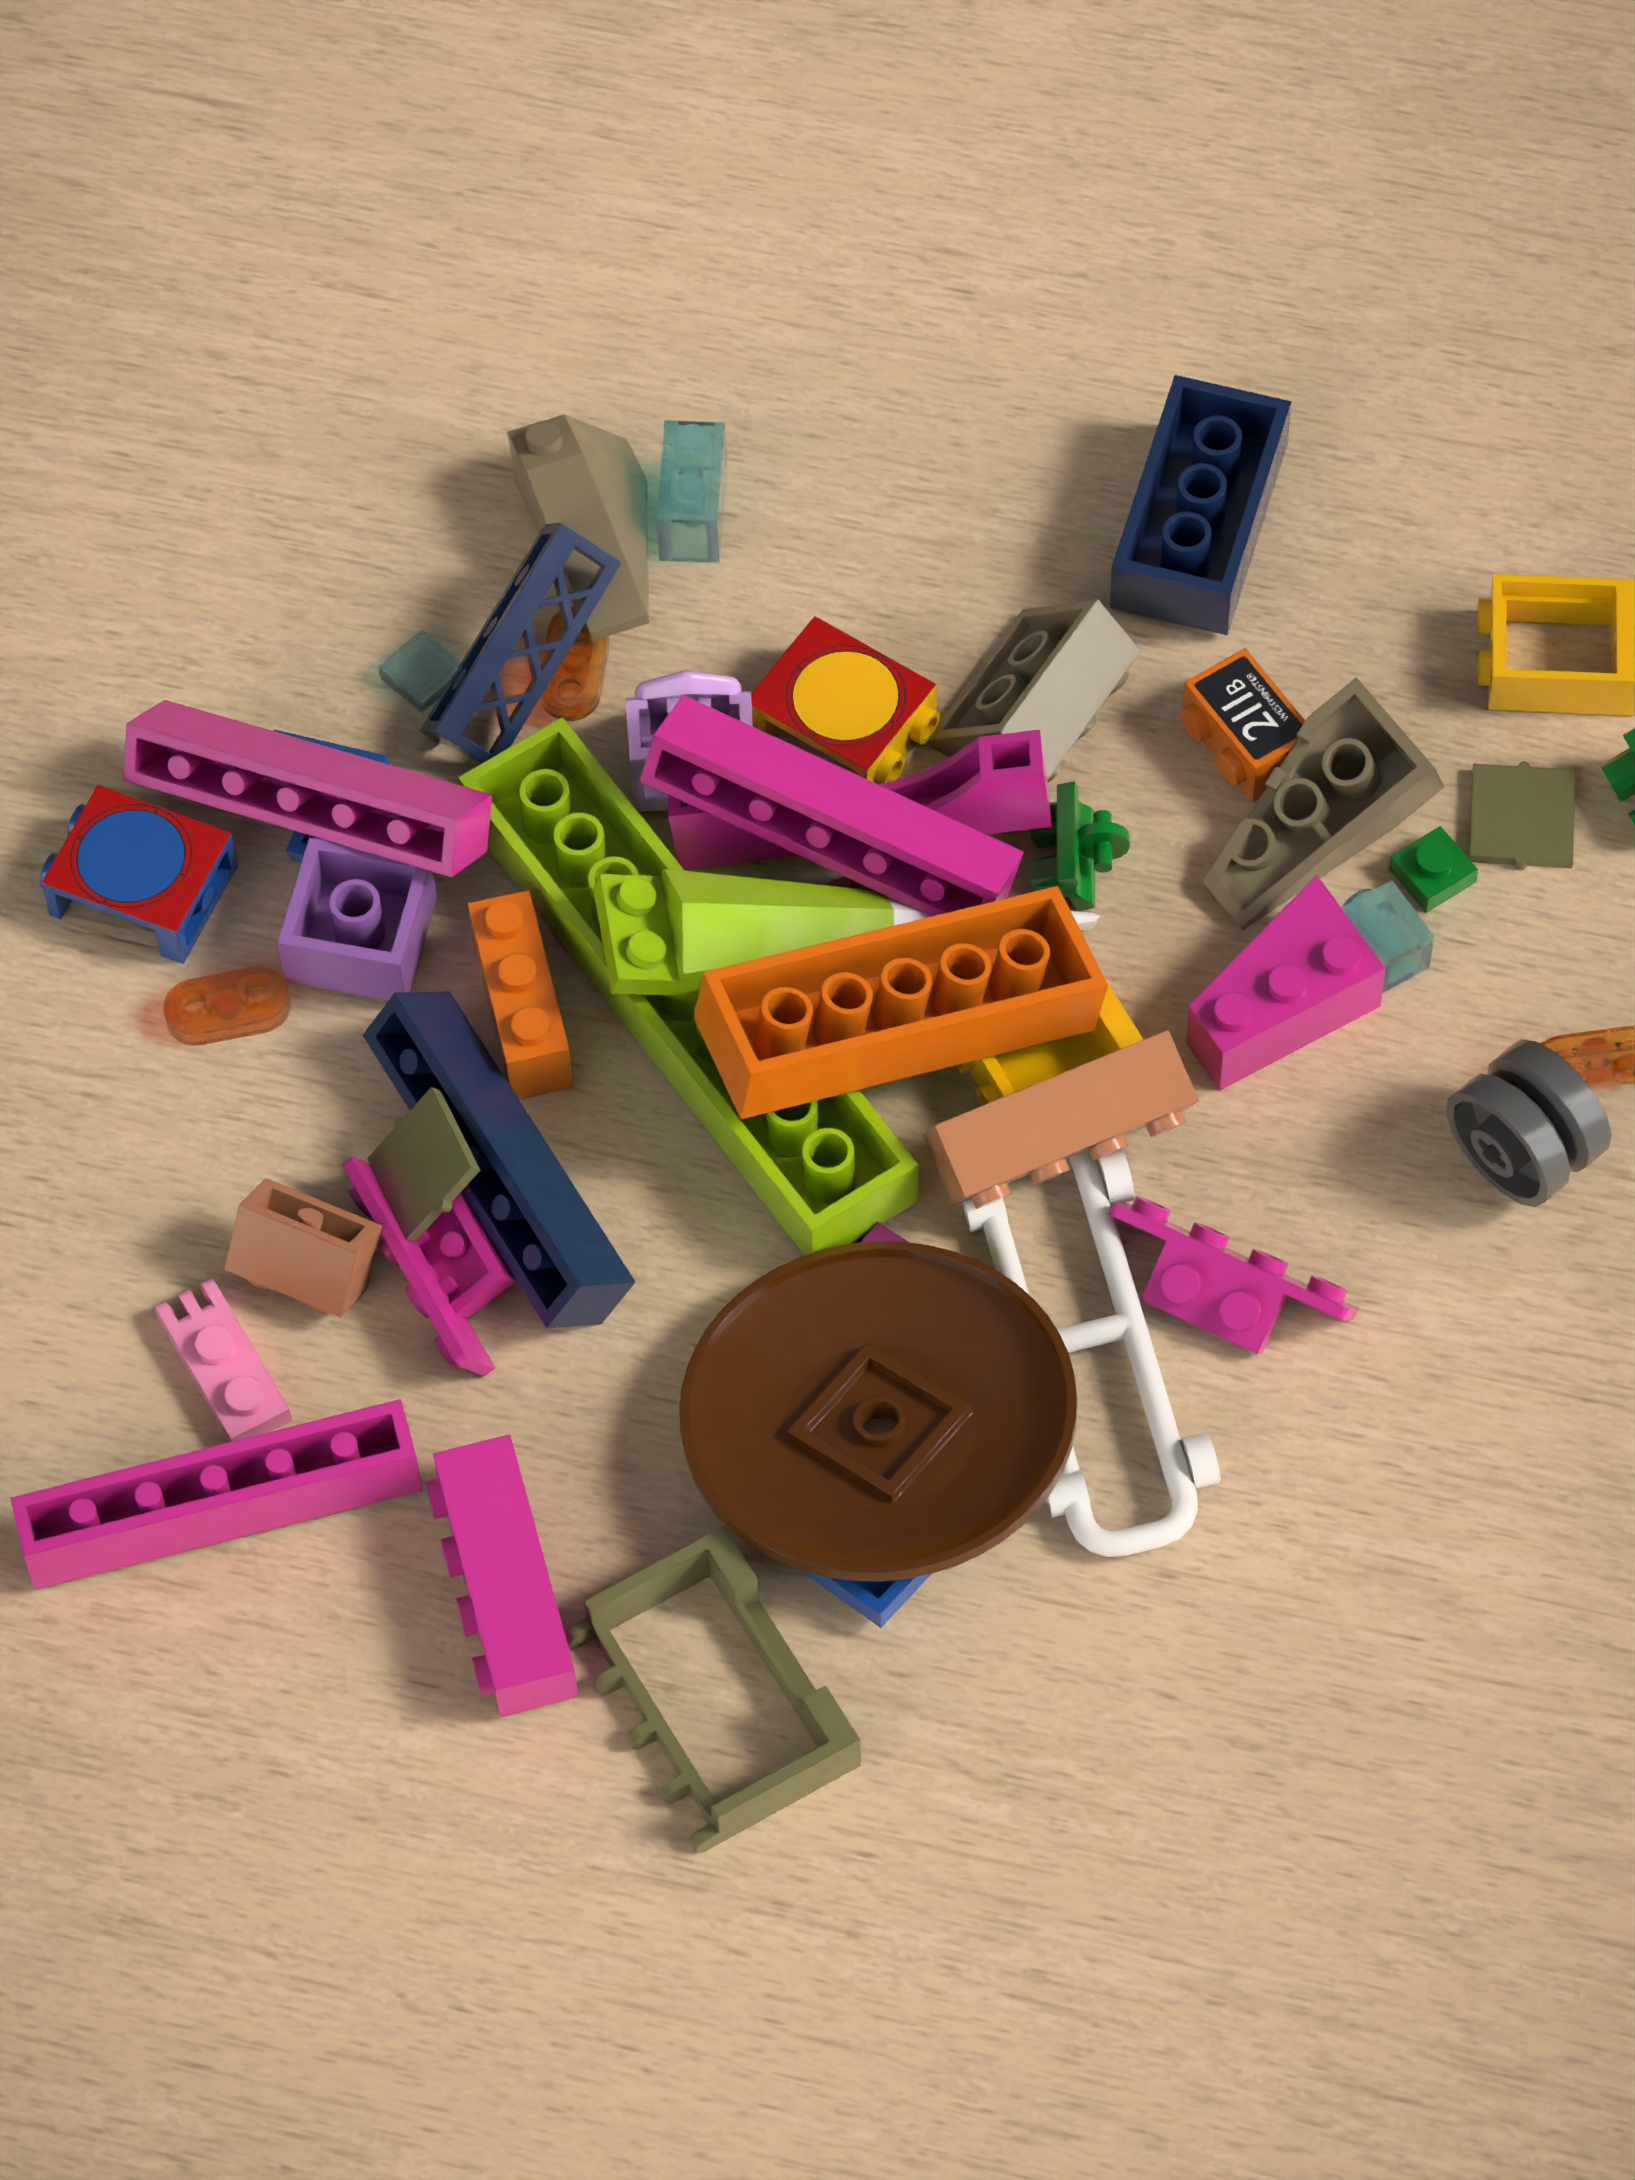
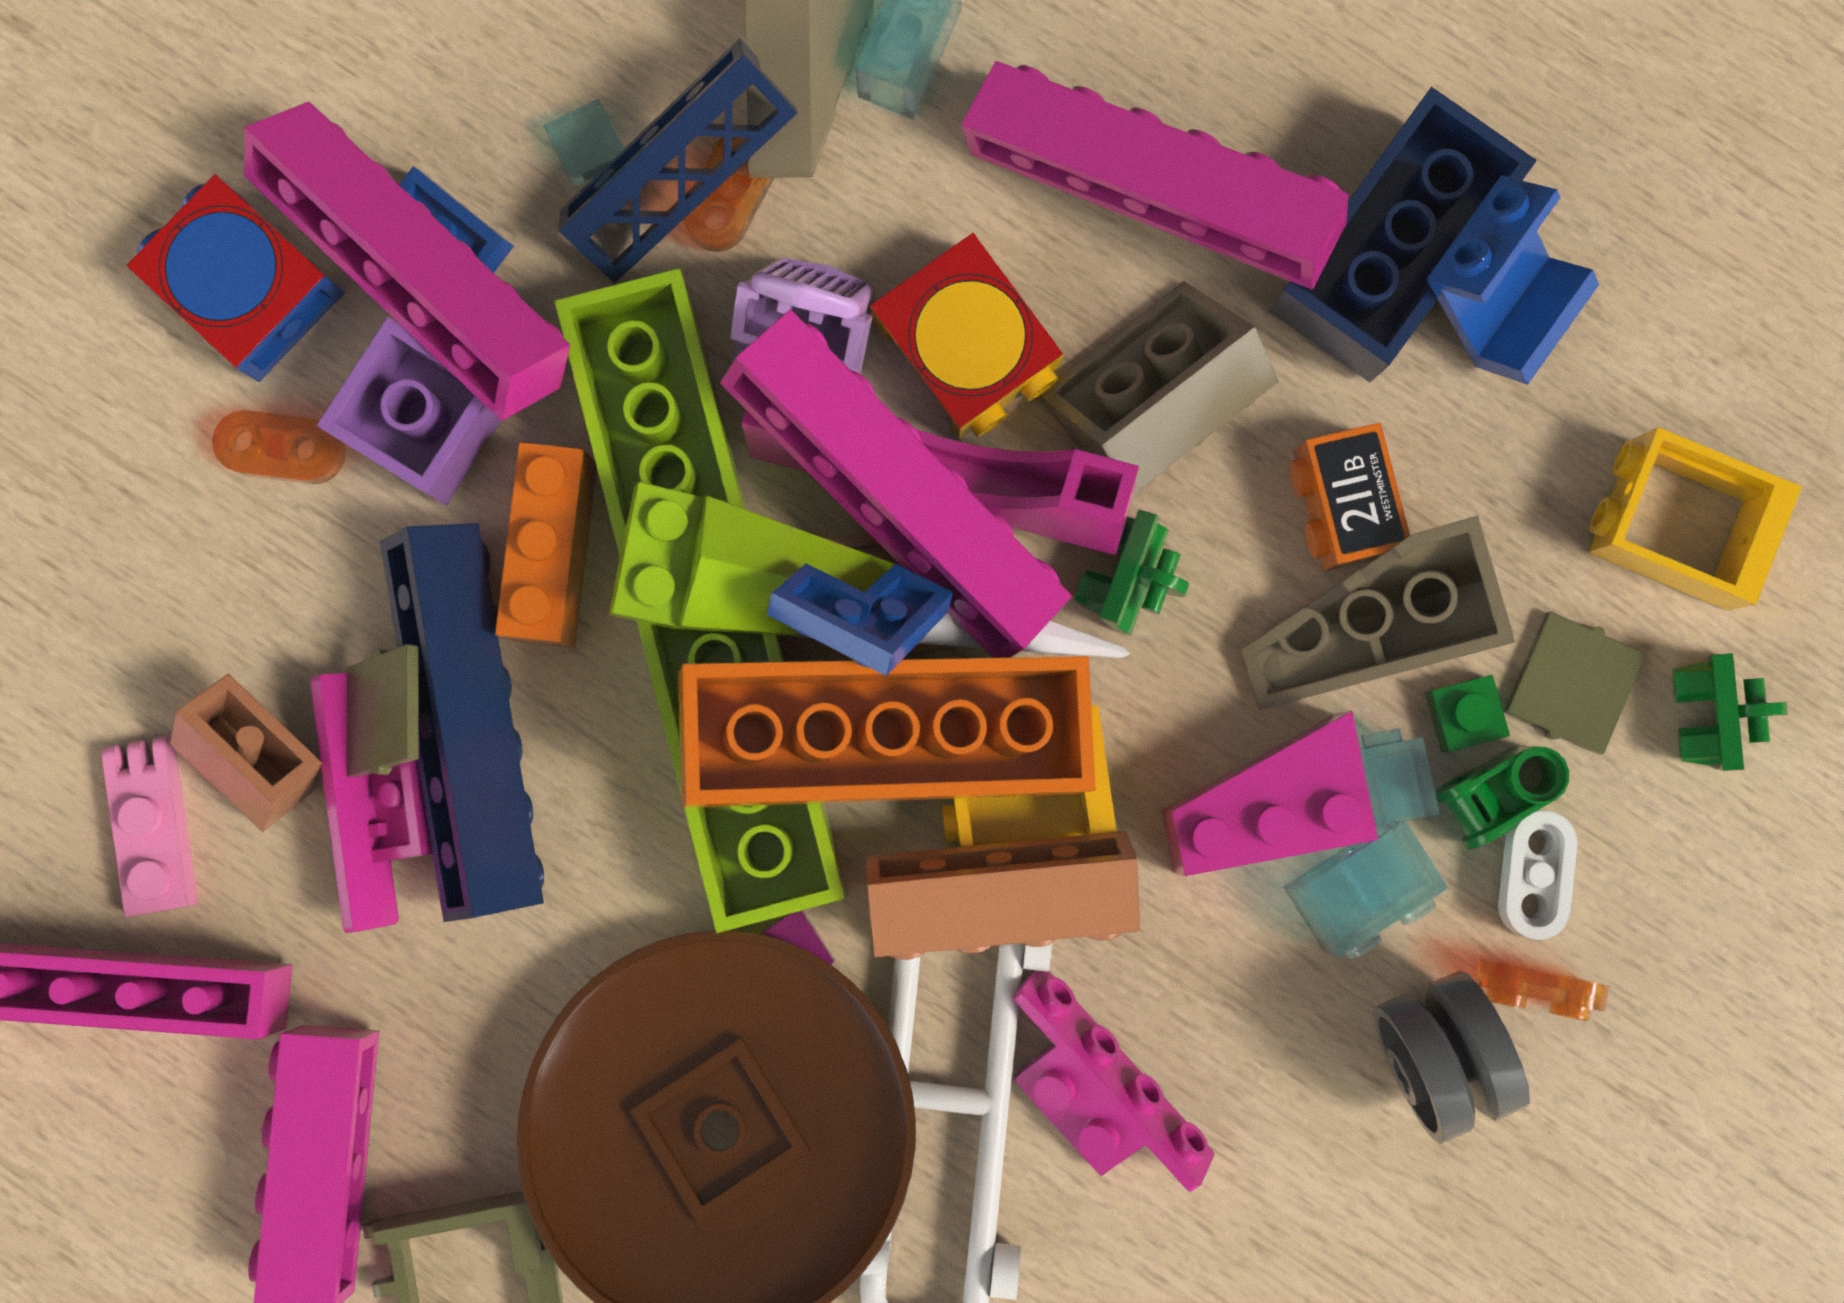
camera: 15 degrees right, 25 degrees up
(858, 902) = (868, 626): none -> blue plate
(958, 517) = (1157, 173): none -> dark pink brick
(1305, 512) = (1503, 286): none -> blue panel
(1399, 1031) = (1366, 891): none -> clear light blue brick
(1481, 919) = (1491, 798): none -> green piece
(1556, 976) = (1544, 874): none -> white plate

